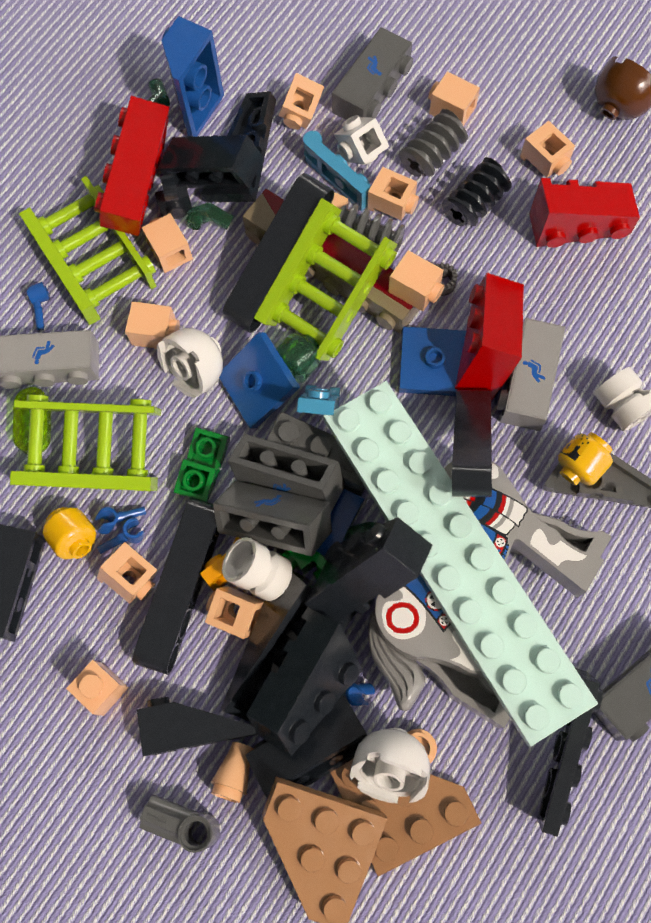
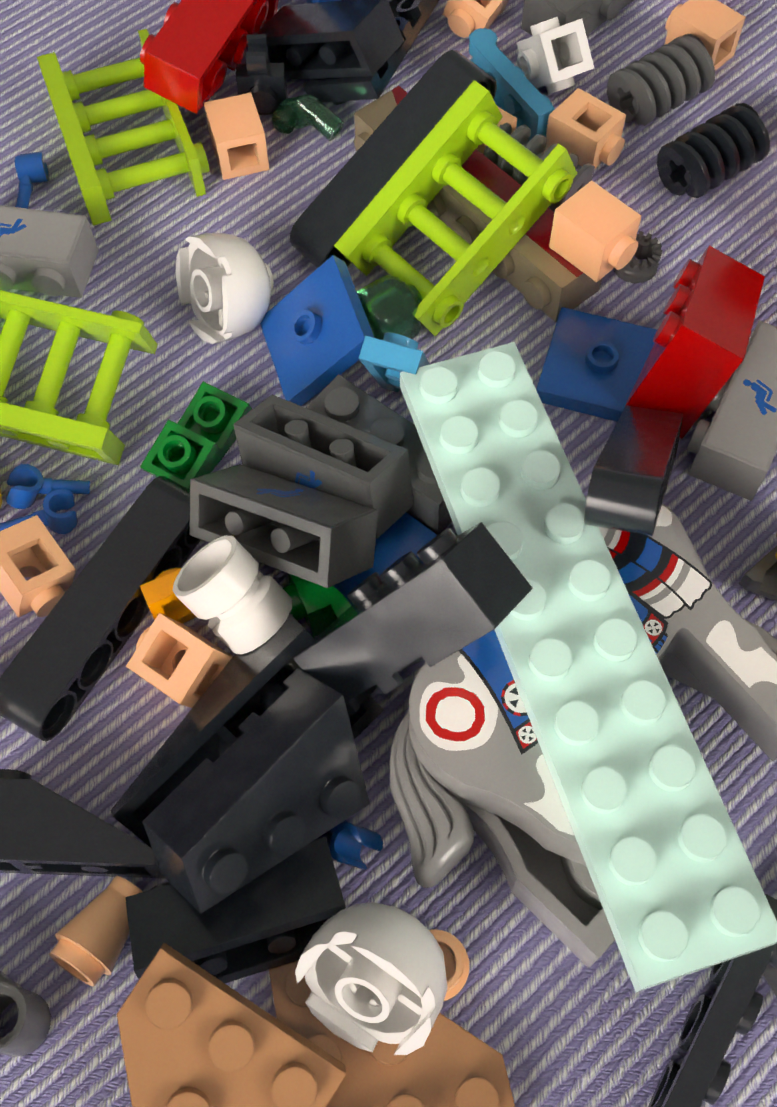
camera: 10 degrees right, 10 degrees down
(150, 324) = (168, 224): light nougat brick -> none

